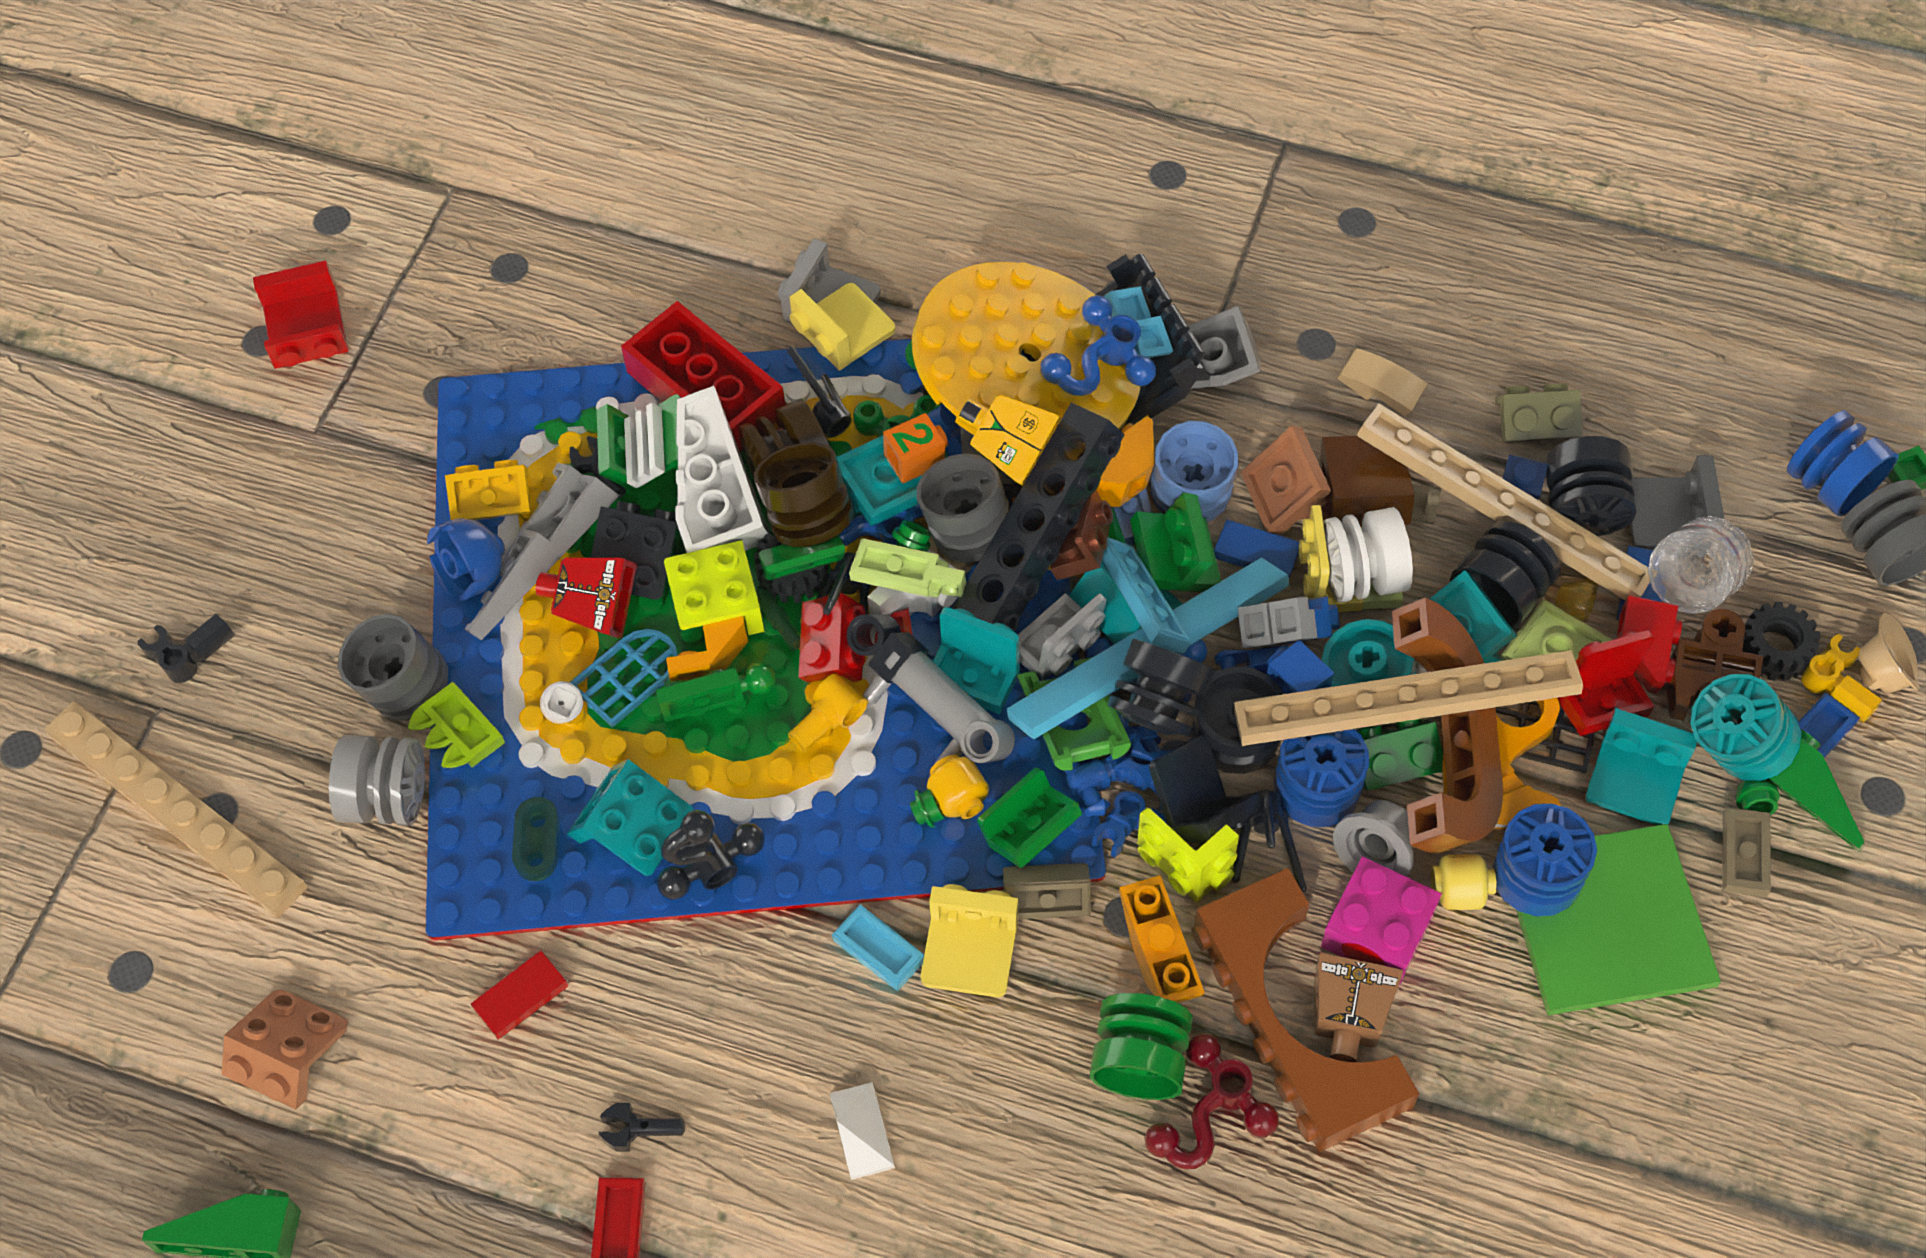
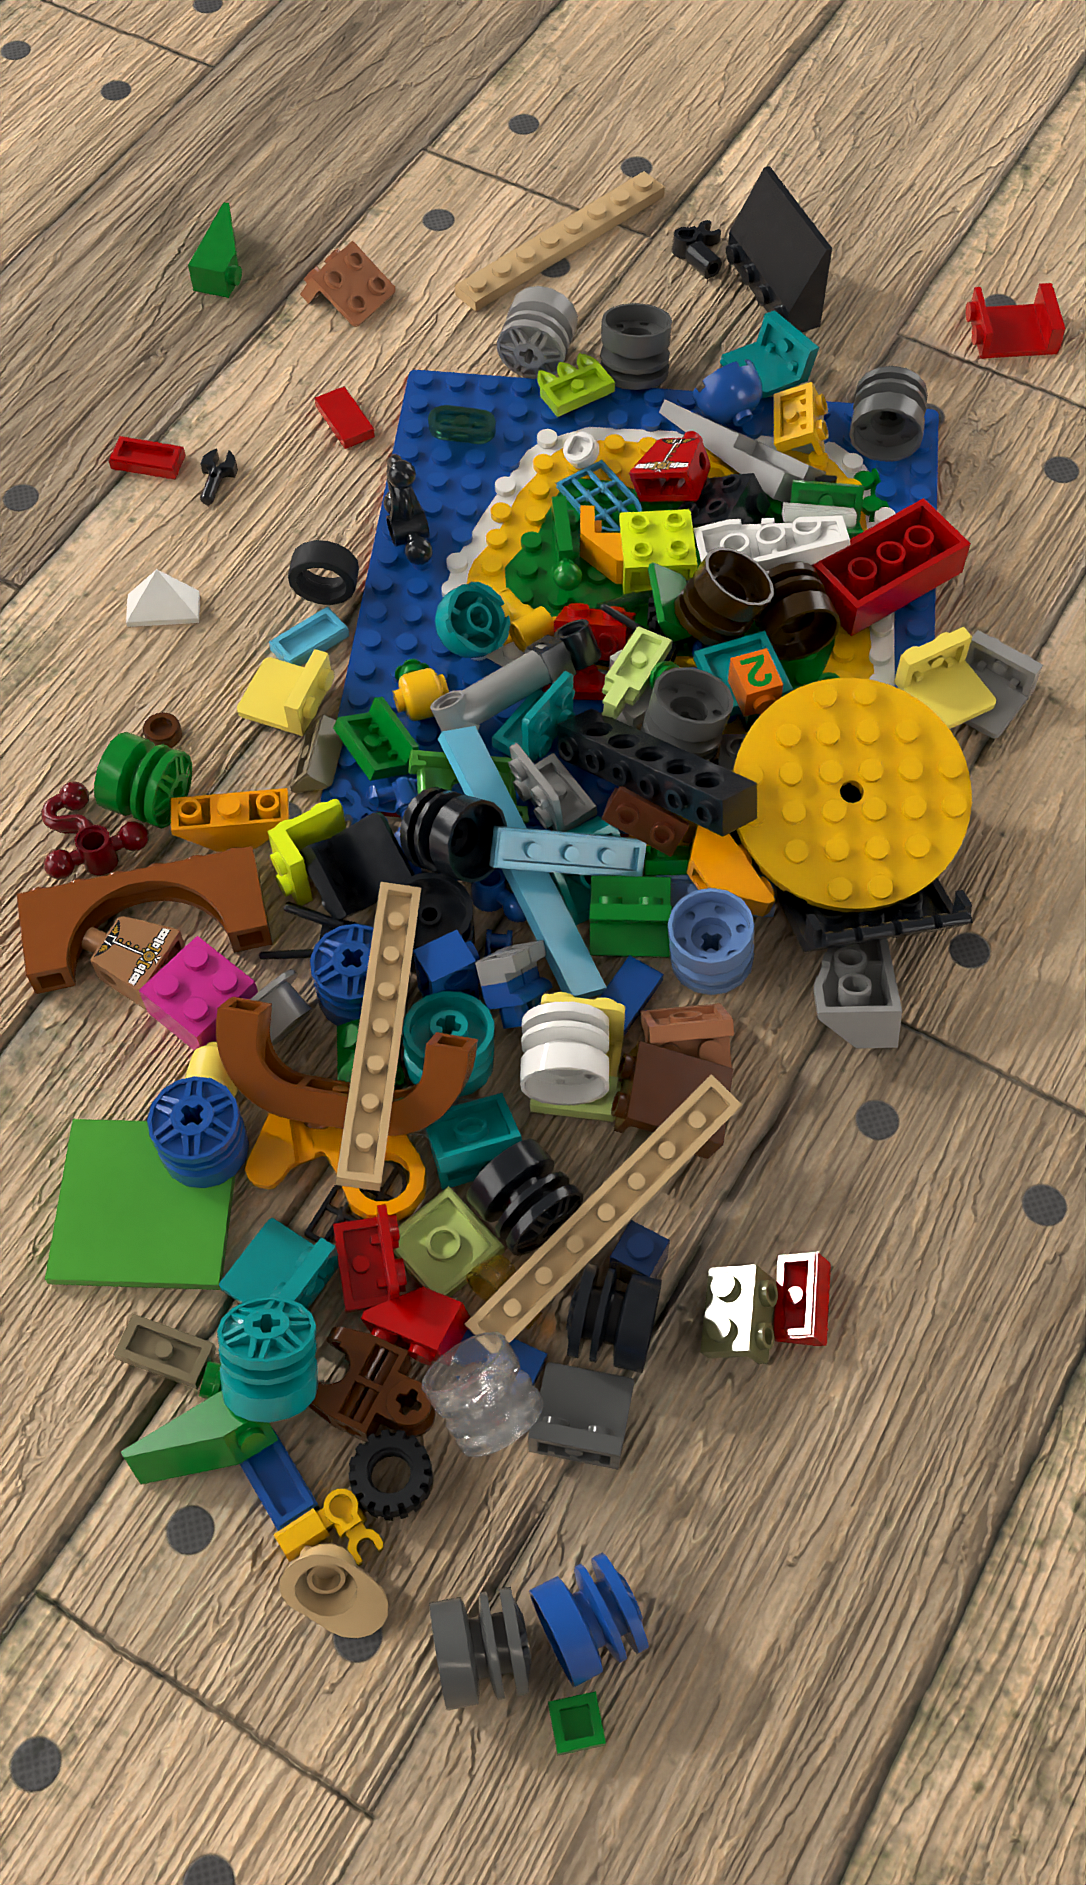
camera: 100 degrees right, 0 degrees up
(231, 533) = (780, 253): none -> black slope
(384, 535) = (780, 355): none -> teal bracket
(481, 397) = (888, 413): none -> dark grey wheel
(631, 816) = (460, 481): teal bracket -> none
(799, 935) = (329, 557): none -> black tyre
(828, 411) = (841, 659): black plant -> none
(856, 752) = (472, 620): none -> teal cylinder
(1010, 433) = (737, 735): yellow torso -> none
(1045, 1073) = (163, 729): none -> reddish brown tile
(1113, 348) = (817, 883): blue piece -> none
(1153, 337) = (884, 902): medium azure slope -> none
(1377, 376) = (809, 1162): tan slope -> none
(1492, 375) = (802, 1299): none -> red slope

